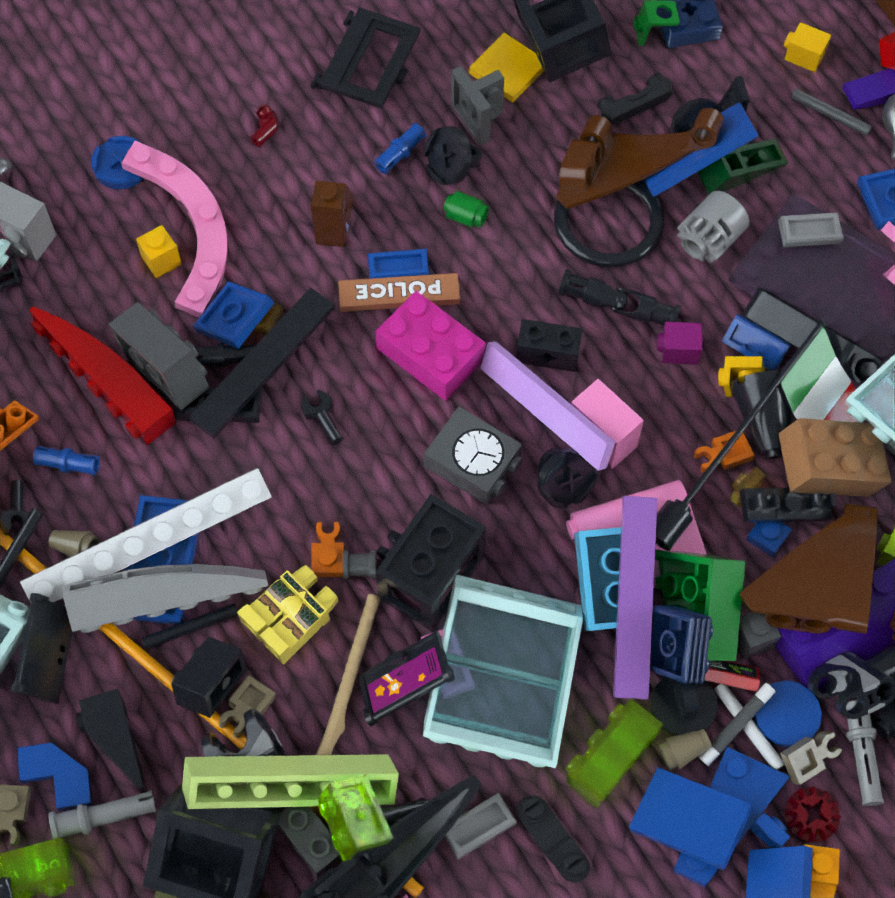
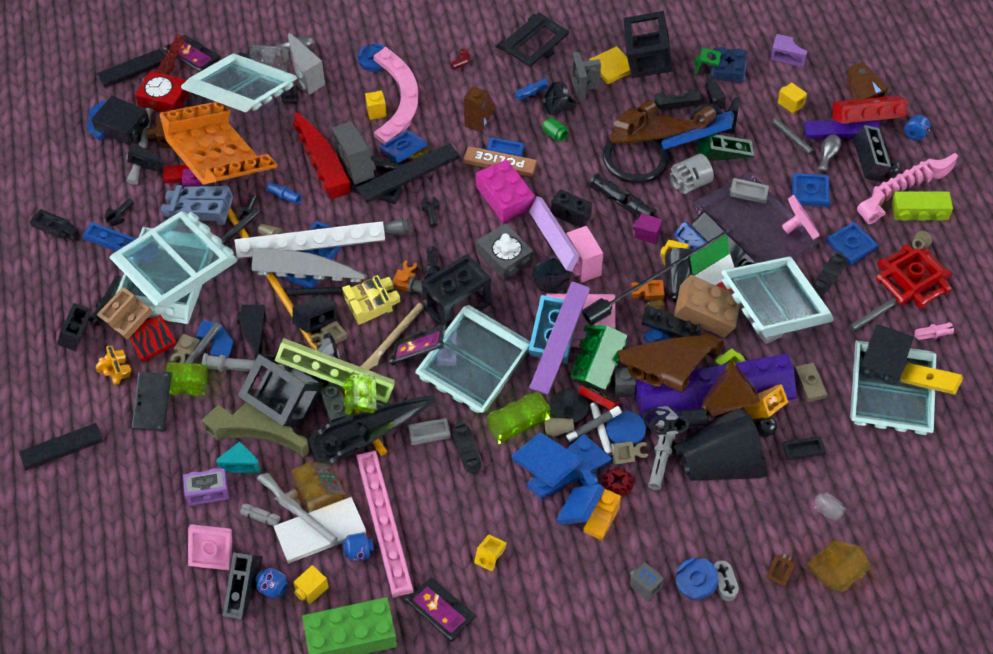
camera: 20 degrees right, 10 degrees down
(37, 799) = (203, 344): none -> dark grey bar
(40, 653) = (229, 282): black door -> none
(281, 466) = (398, 227): none -> dark grey cone
(374, 532) = (432, 262): none -> black pin
(476, 448) = (506, 245): none -> white piece
(680, 643) = (574, 368): dark blue brick -> none
(687, 73) = (714, 92): none -> black slope

